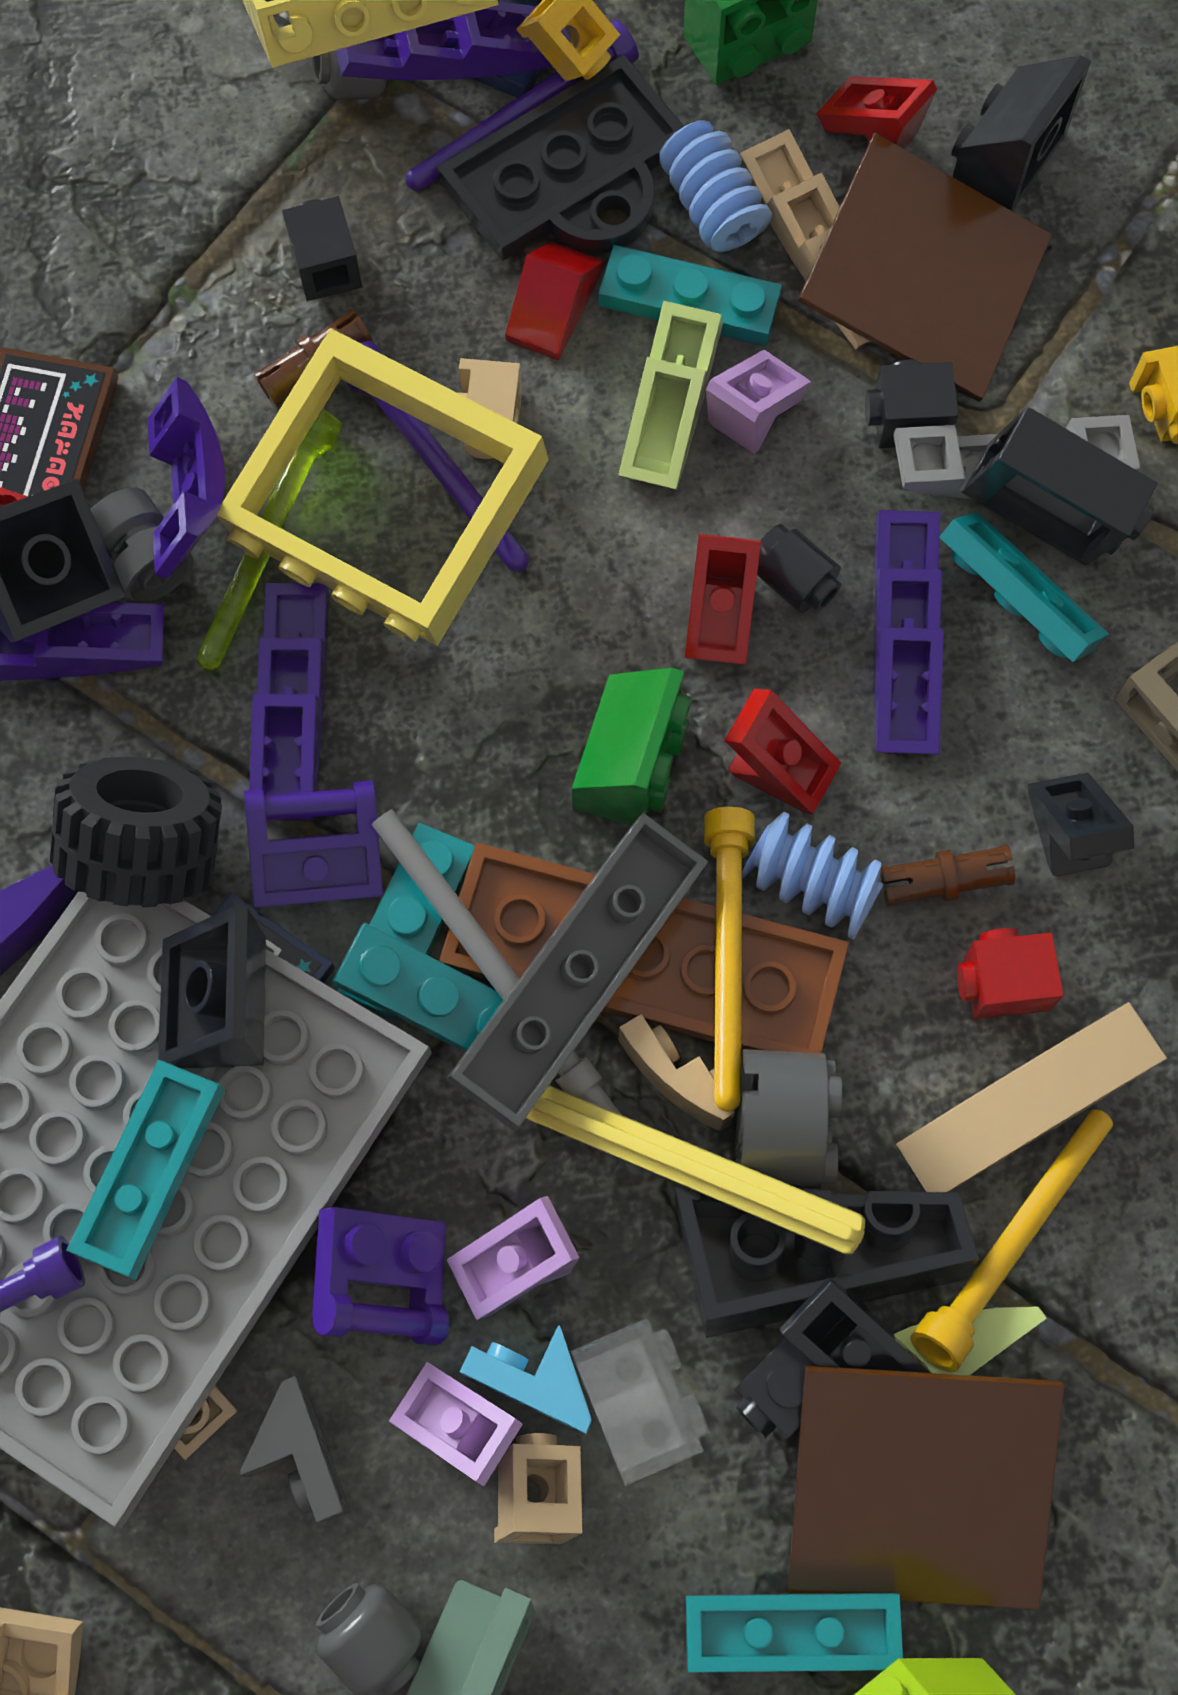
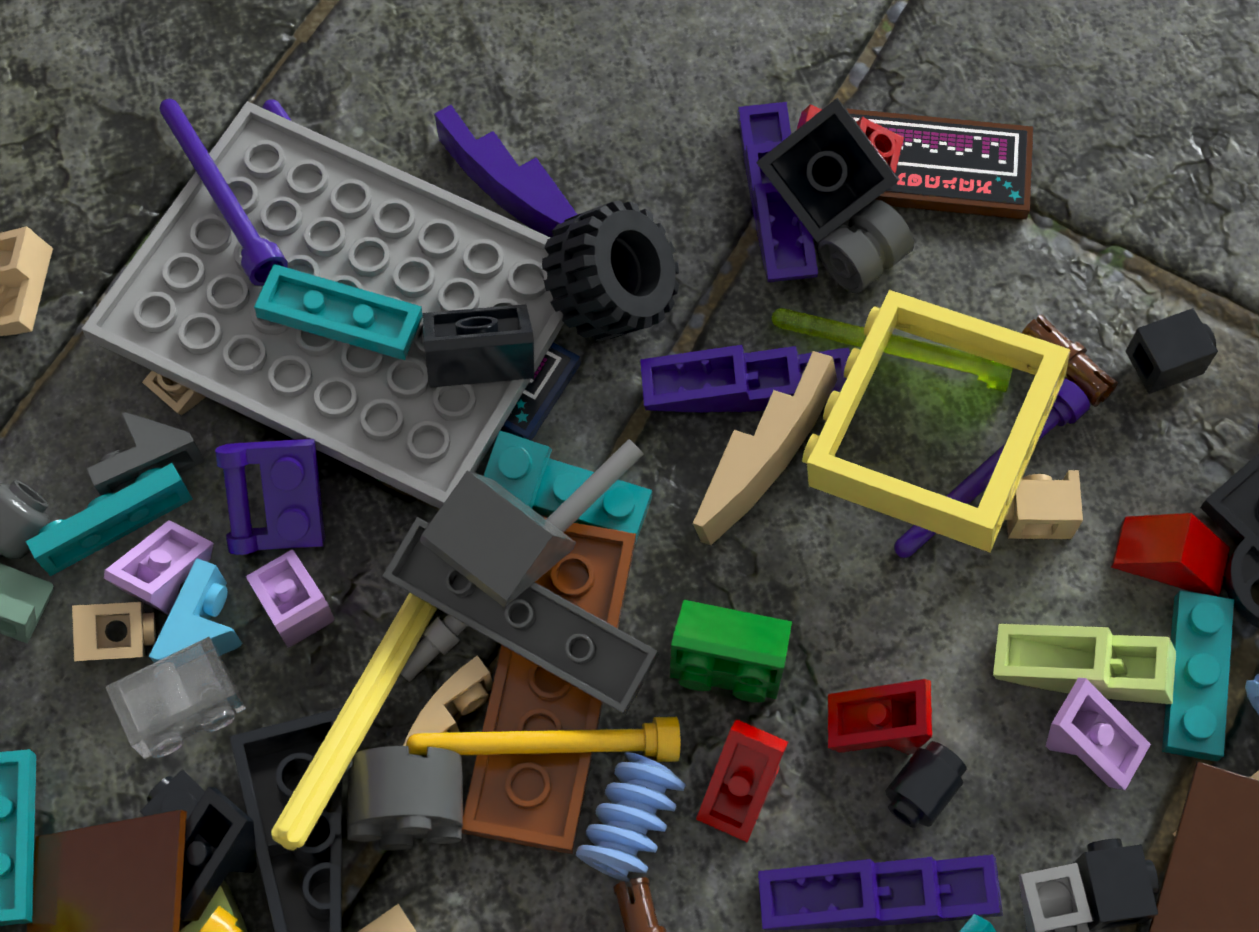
camera: 85 degrees right, 5 degrees down
(185, 439) = (968, 269): dark purple slope -> none
(313, 866) = (604, 410): dark purple plate -> none
(378, 1499) = (108, 519): none -> teal plate
(400, 698) = (756, 461): none -> tan slope
(494, 980) = (494, 538): none -> dark grey slope

